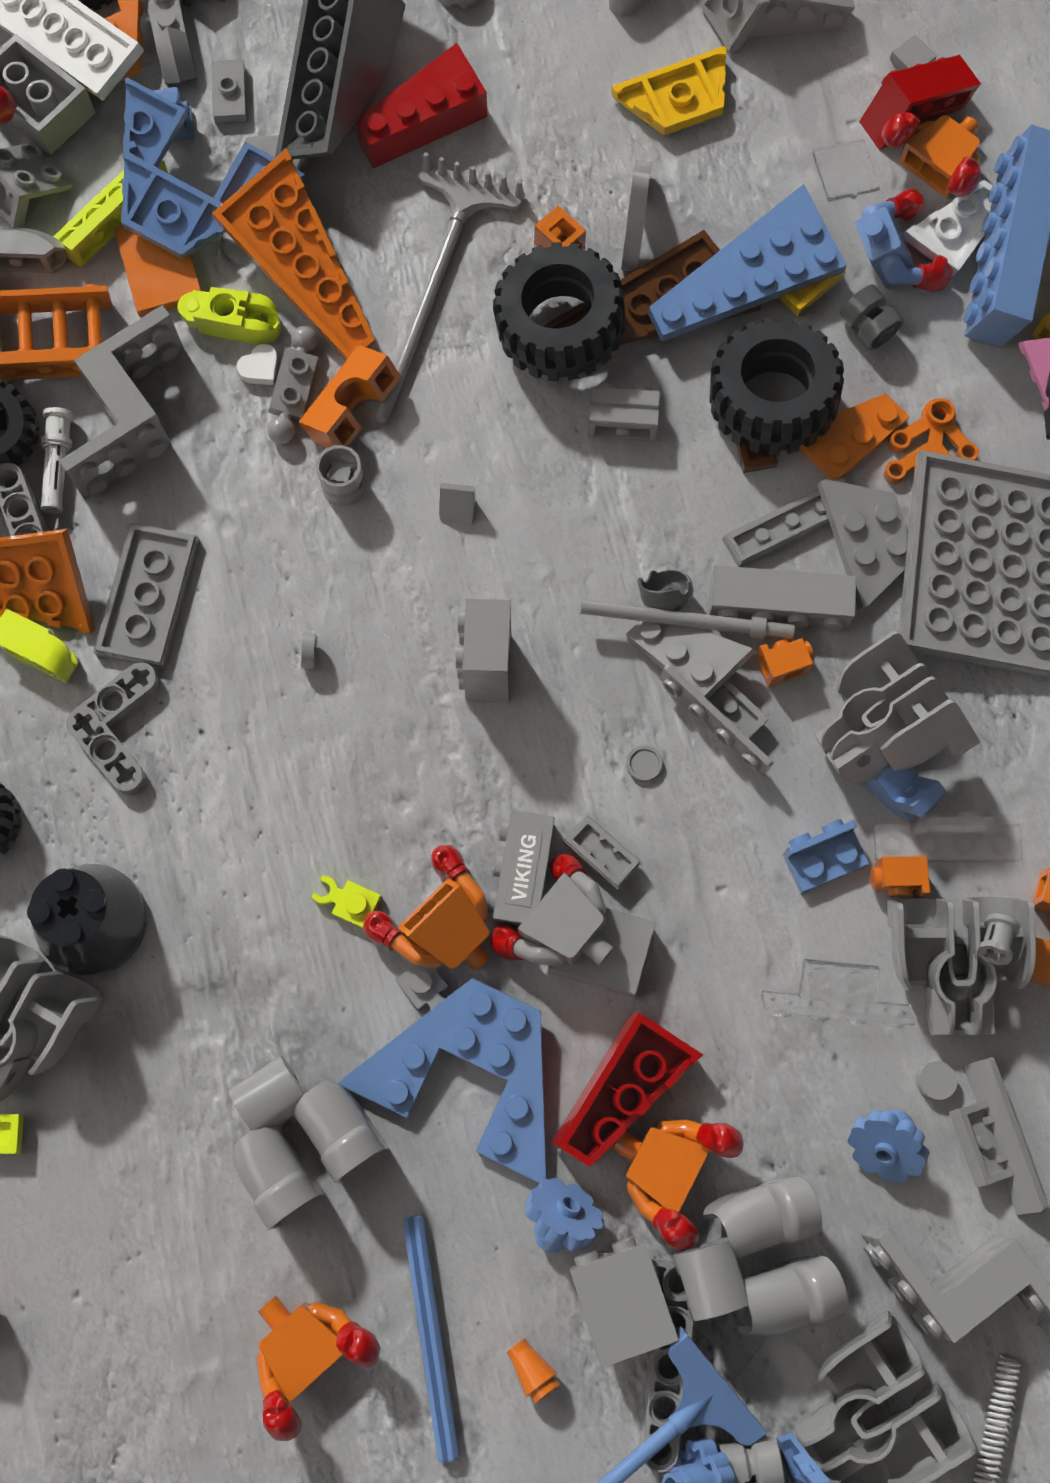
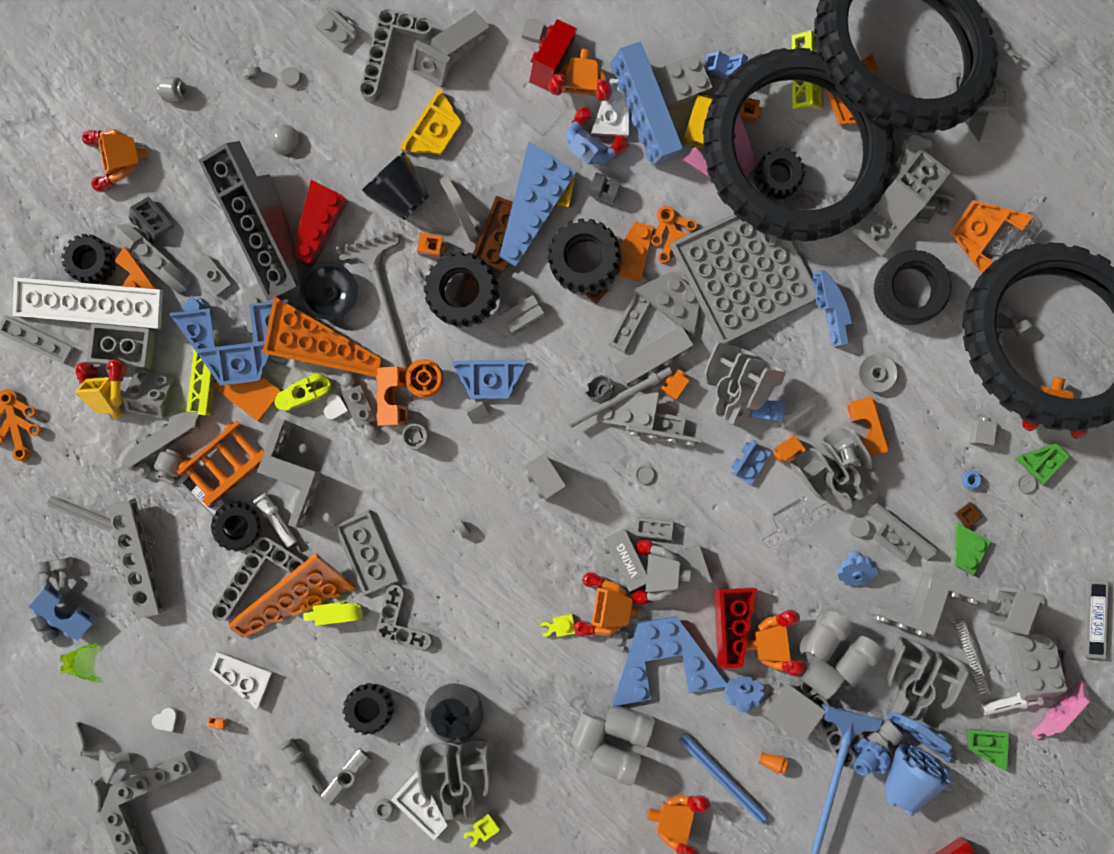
camera: 40 degrees left, 10 degrees up
(369, 187) = (327, 278): none -> black dish
(415, 401) = (424, 378): none -> orange cone
(512, 469) = (489, 377): none -> medium blue wing
(569, 121) = (398, 187): none -> black cone

